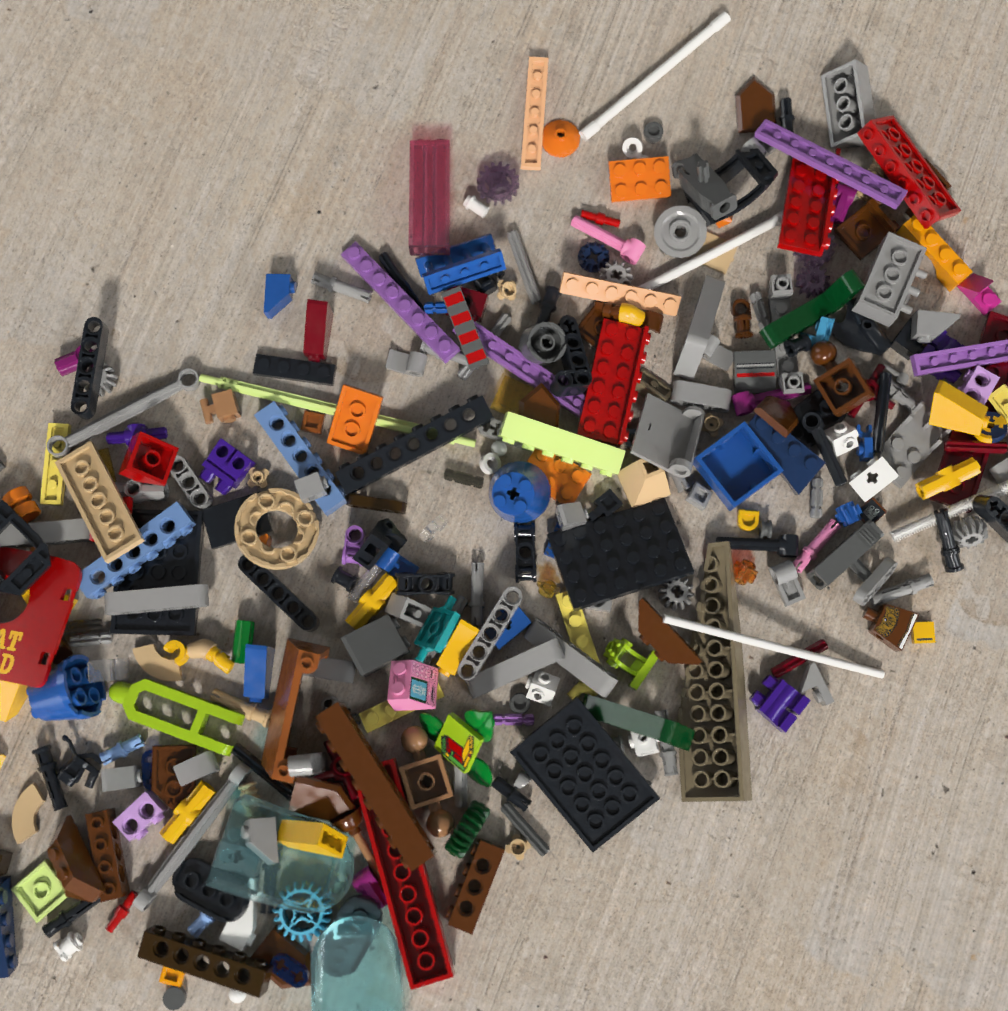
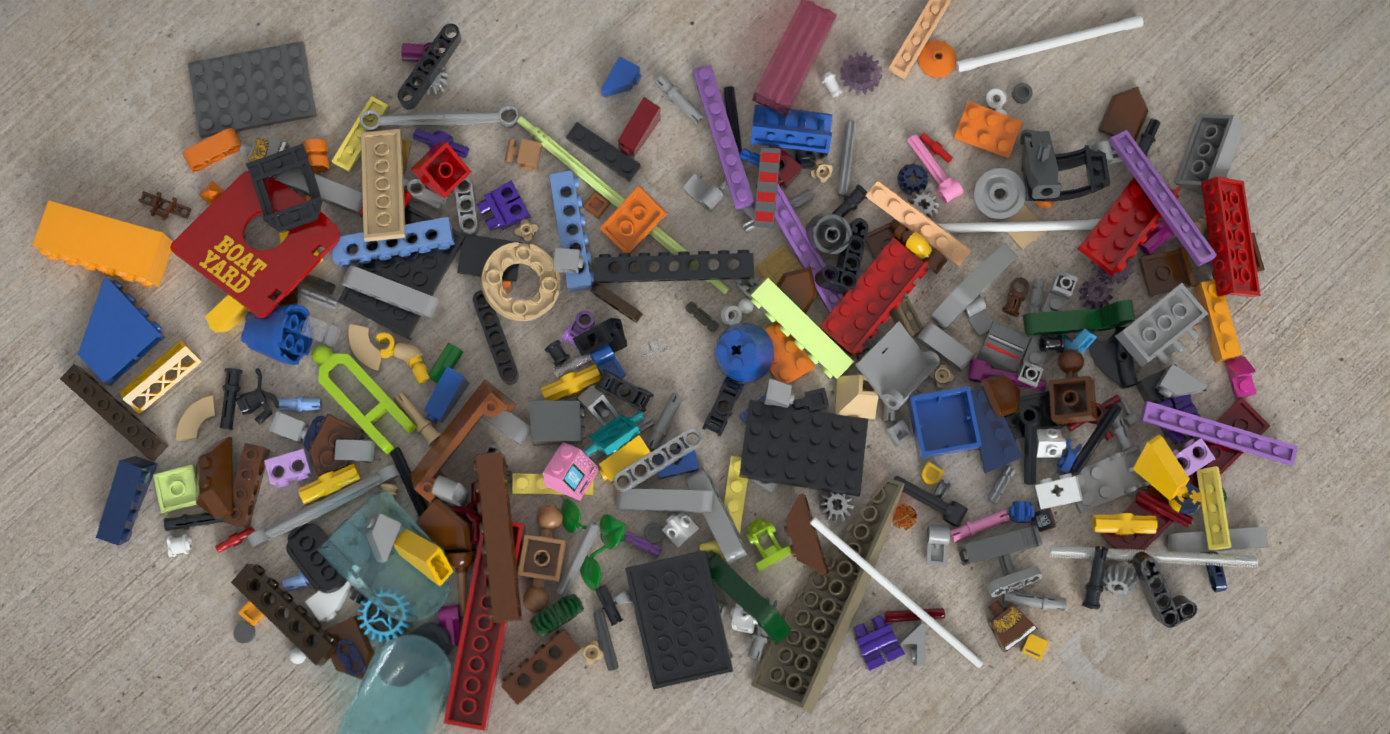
camera: 20 degrees right, 0 degrees up
(458, 742) = (585, 538): tile -> none
(547, 588) = (727, 447): clear yellow plate -> none

